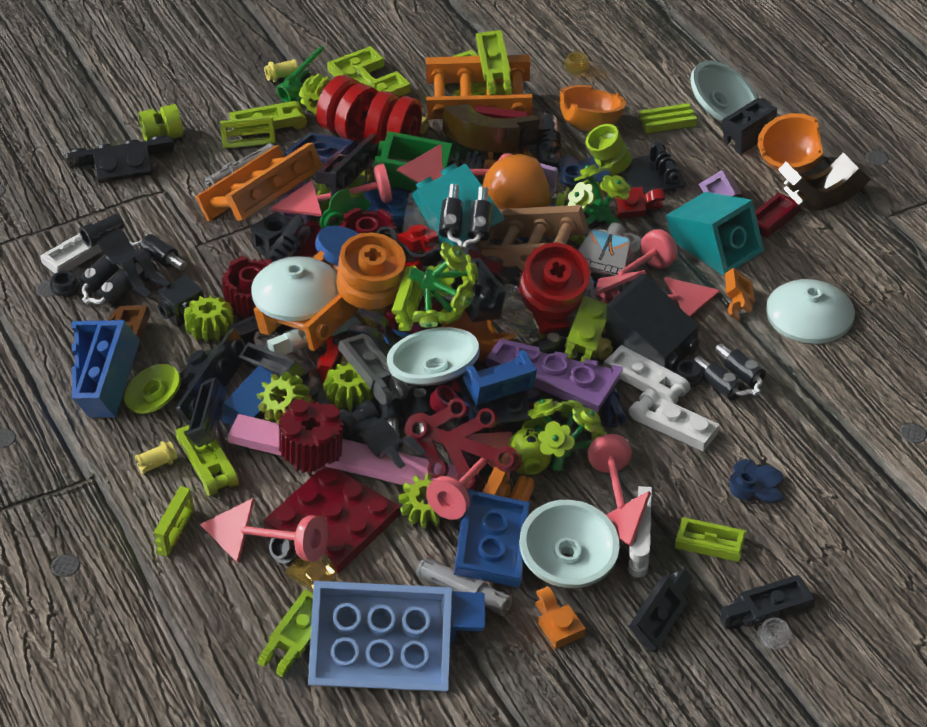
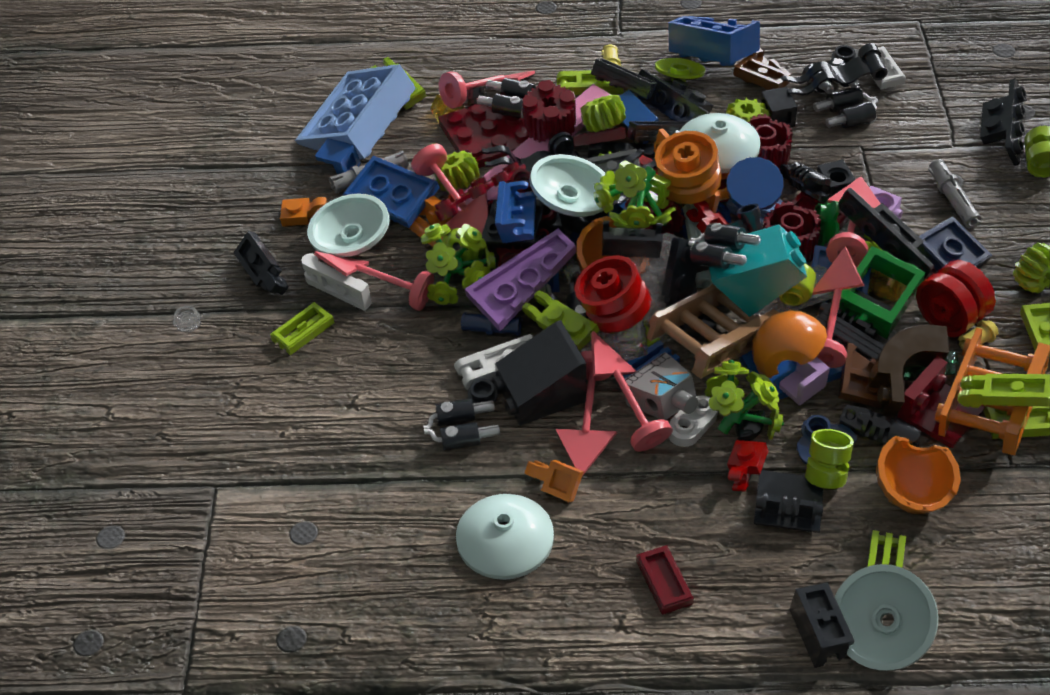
camera: 120 degrees right, 5 degrees up
(174, 521) = (538, 50): lime tile -> none
(248, 131) = (1007, 207): lime tile -> none
(259, 182) = (904, 180): orange fence -> none
(271, 493) = (510, 98): none -> black piece
(284, 115) = (1028, 225): lime plate -> none
(345, 107) = (1006, 267): red wheel -> none
(576, 63) = (1031, 521): clear yellow plate -> none
(674, 420) = (435, 362): white plate -> none
(717, 230) = (654, 497): teal slope -> none
(722, 184) = (724, 543): lavender panel -> none
(756, 481) = (332, 384): dark blue plate -> none
(767, 602) = (212, 328): black hinge -> none
(792, 140) = (747, 631): orange cylinder -> none
(827, 188) = (670, 626): dark brown arch -> none

